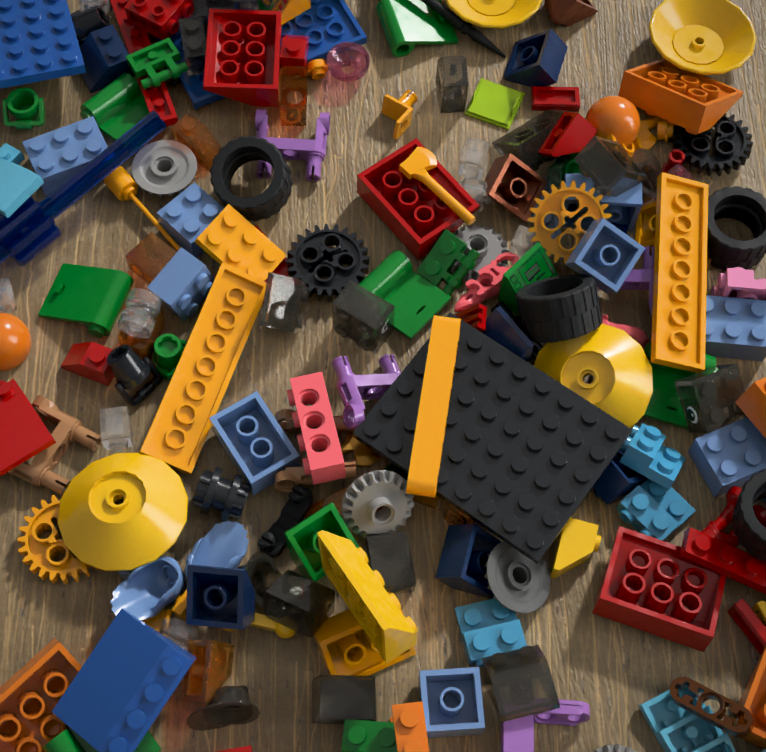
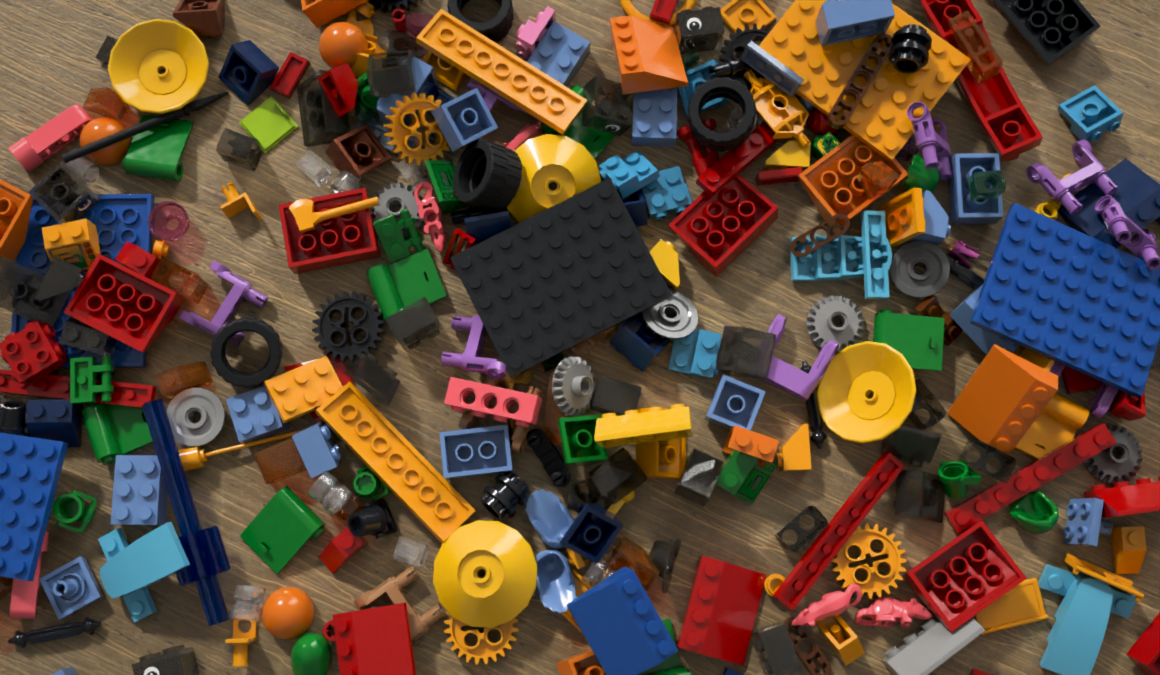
camera: 60 degrees left, 15 degrees up
(433, 407) = (523, 308): light orange beam -> none

